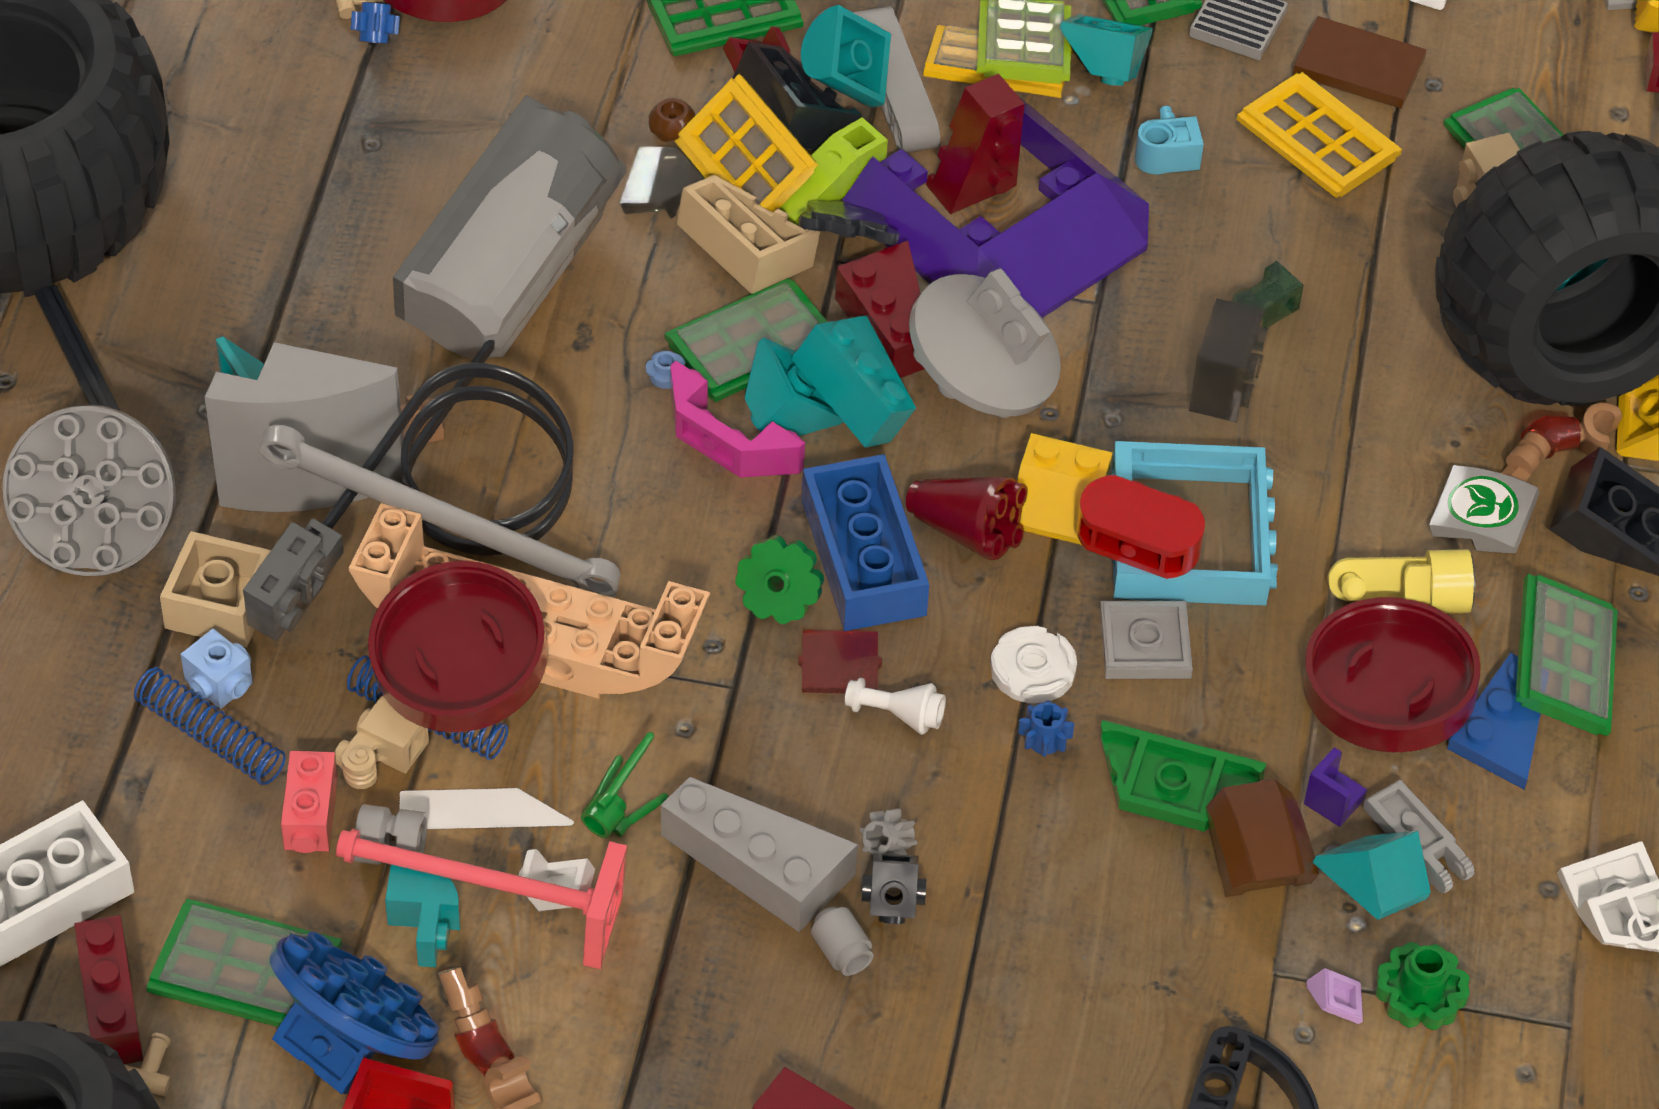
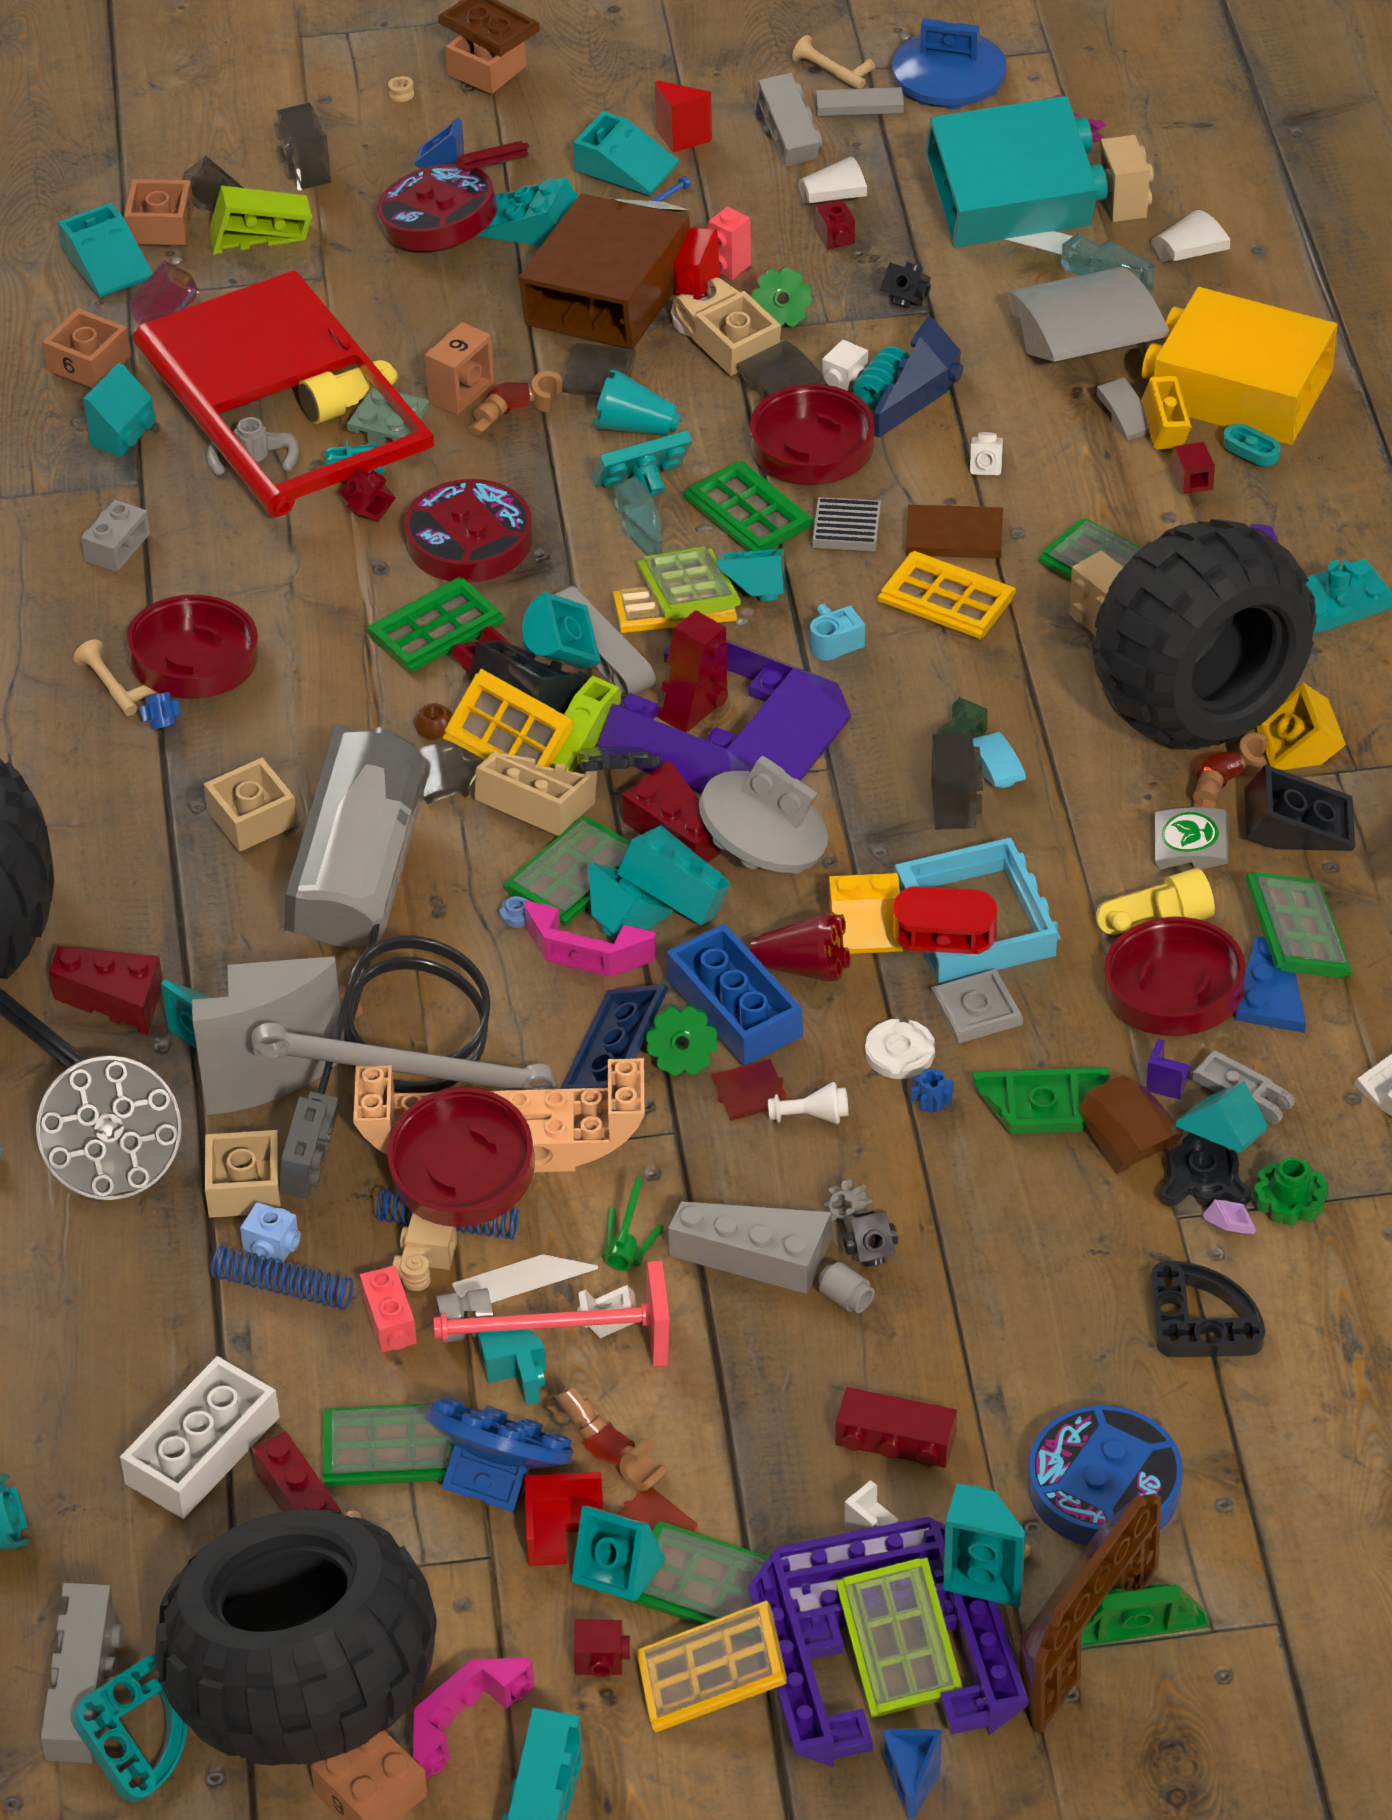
camera: 15 degrees left, 5 degrees down
(175, 320) = (108, 982): none -> dark red wedge
(421, 157) = (250, 804): none -> tan brick
(710, 548) = (614, 1034): none -> dark blue slope
(1293, 348) = (999, 760): none -> medium azure slope
(1328, 928) = (1204, 1171): none -> black tile

